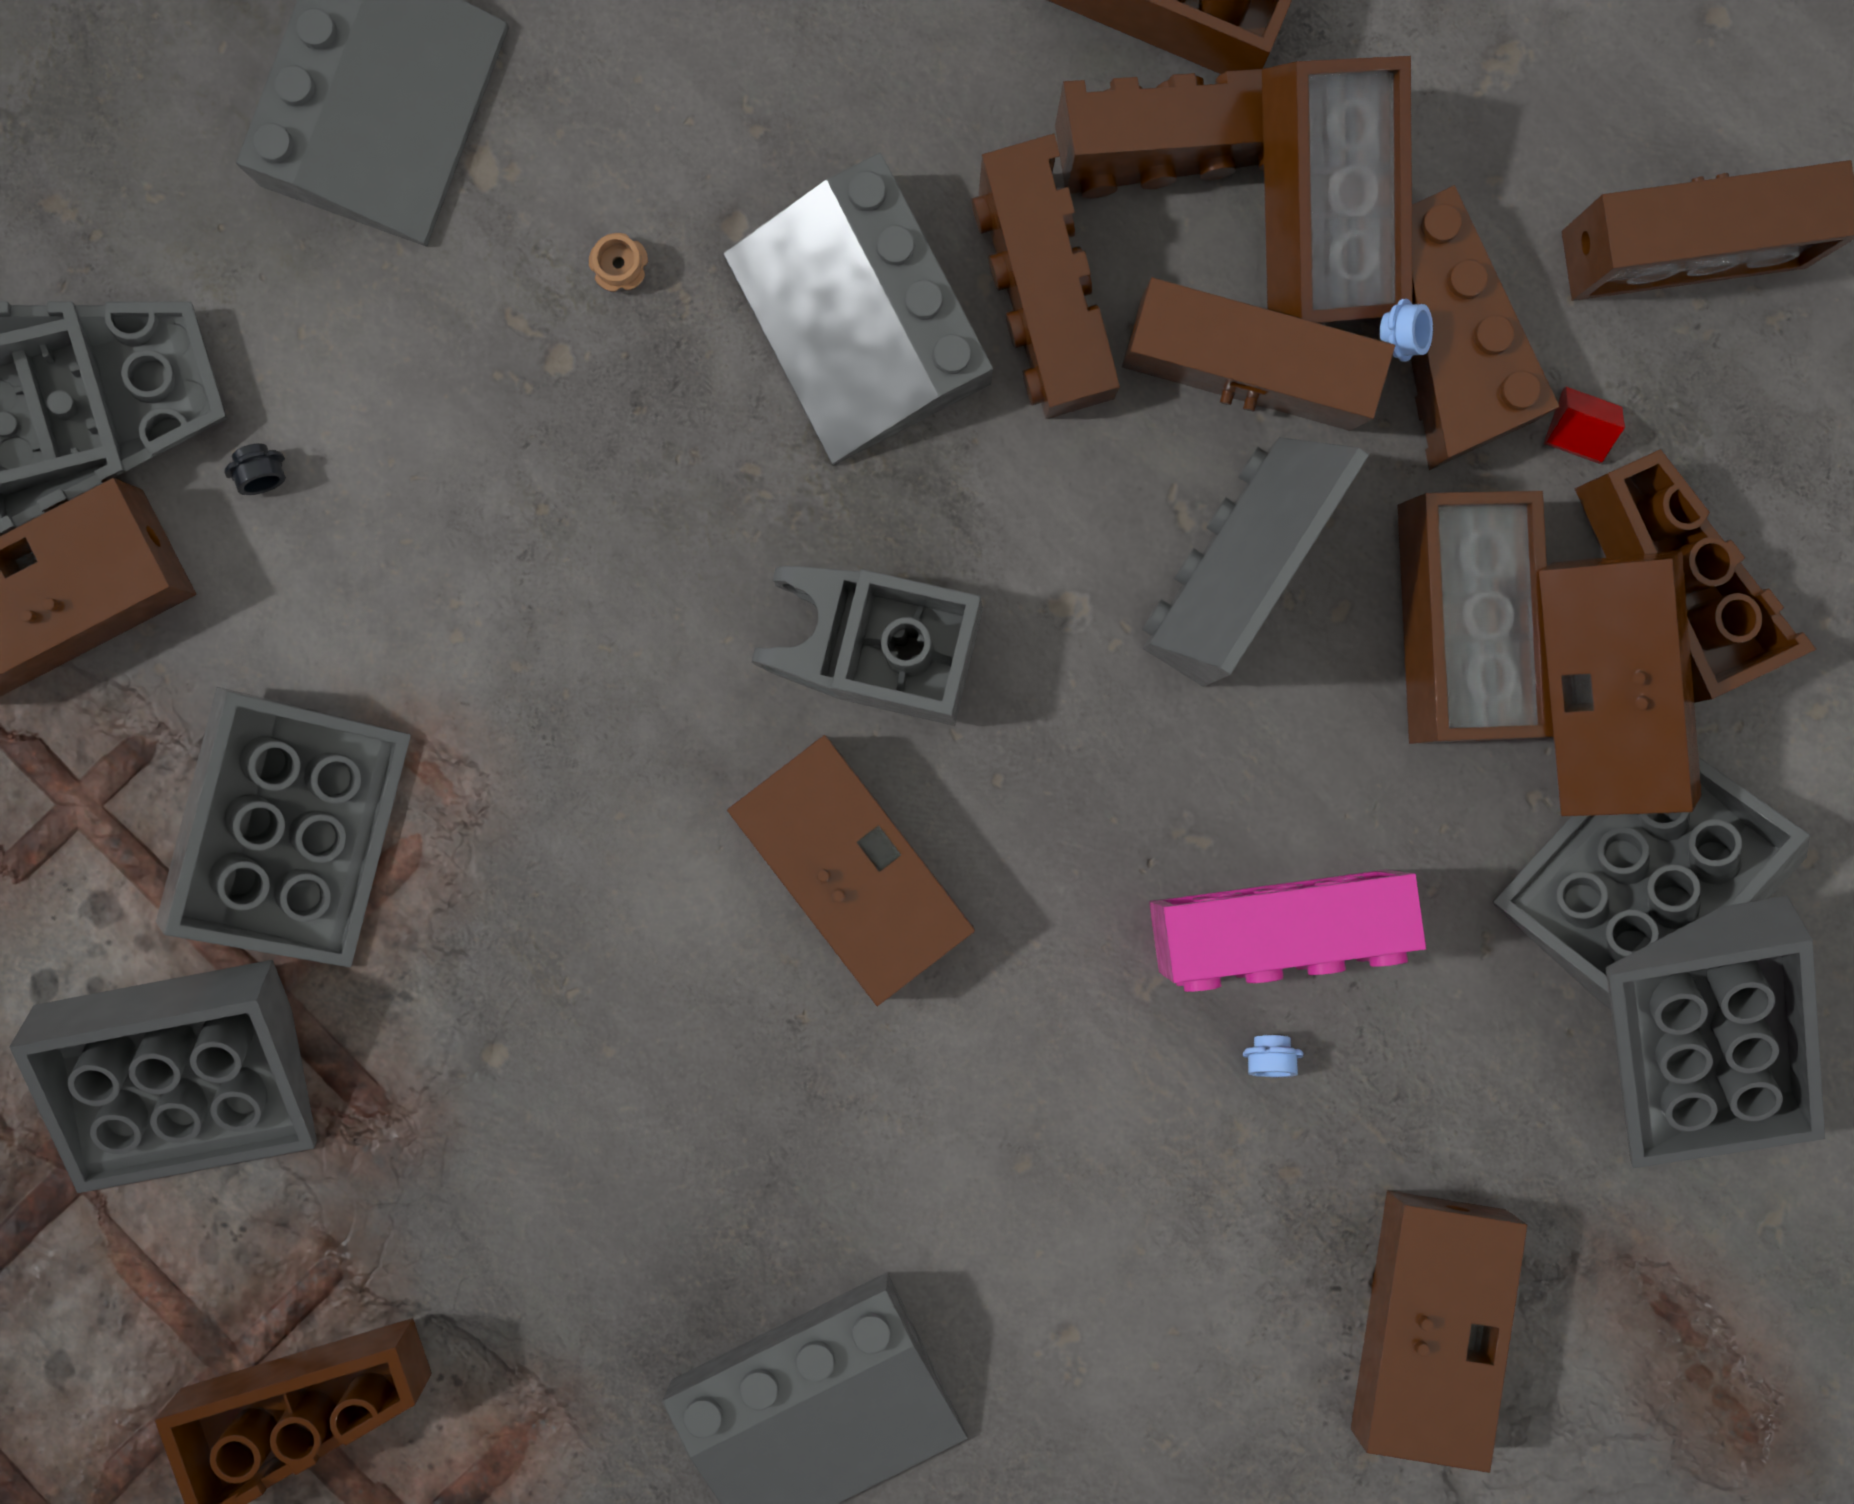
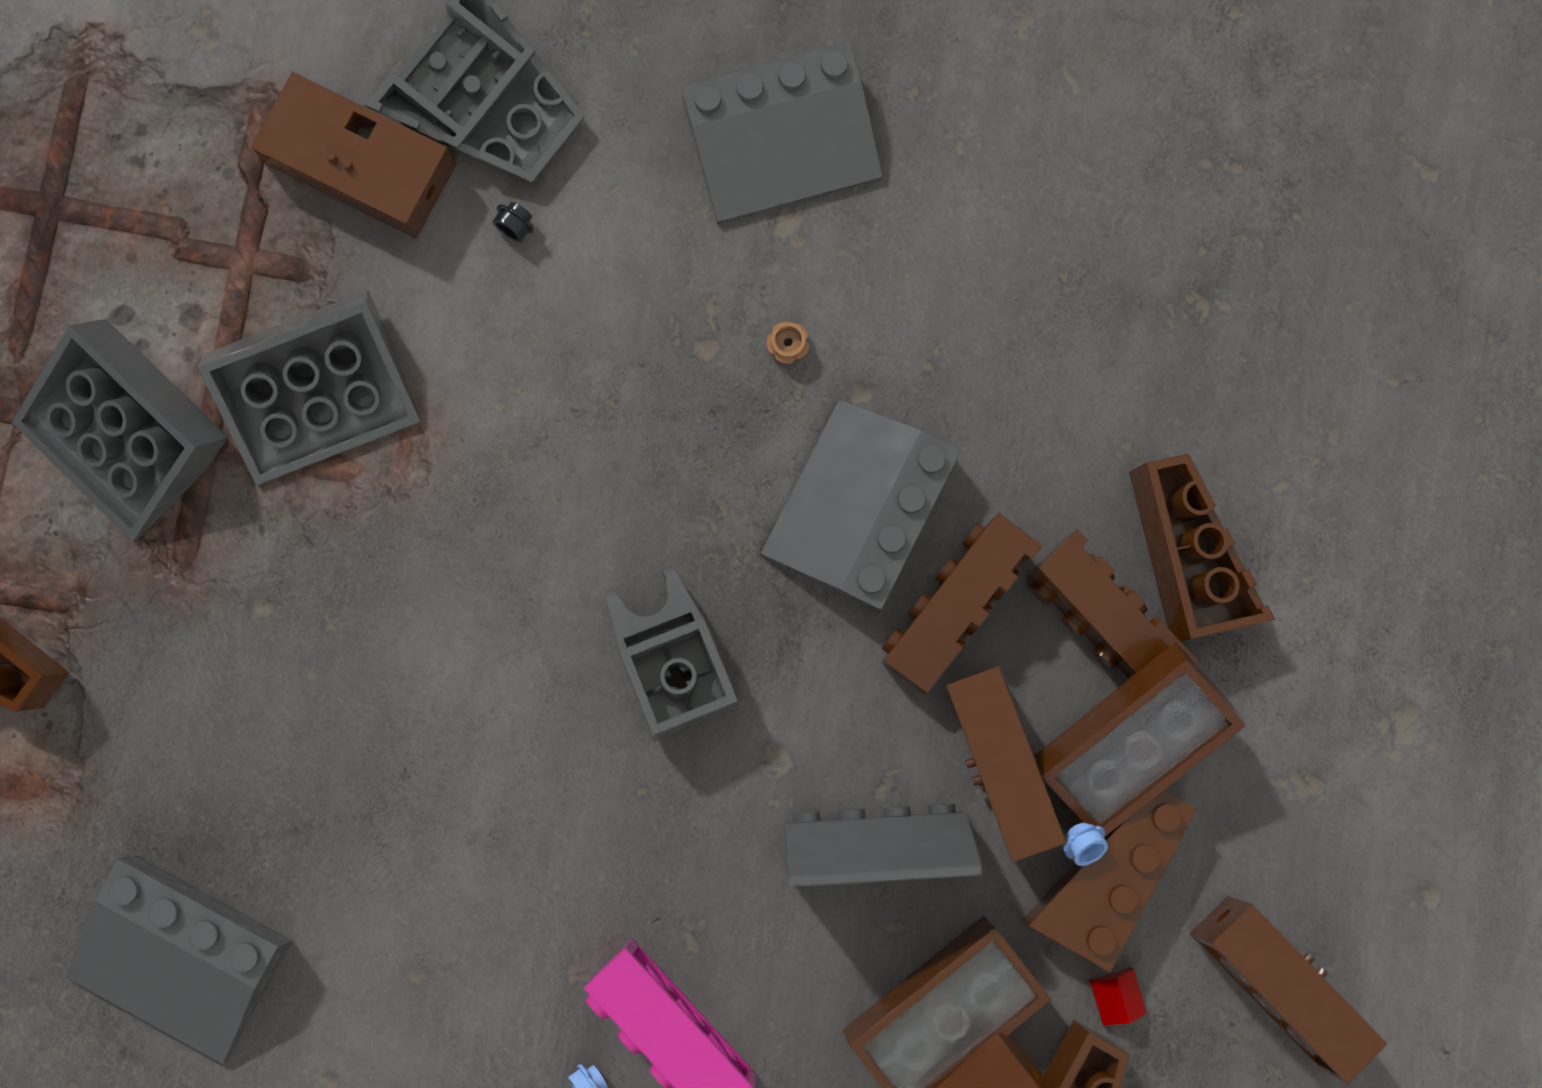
camera: 55 degrees right, 5 degrees down
(851, 870) = (520, 743): reddish brown brick -> none

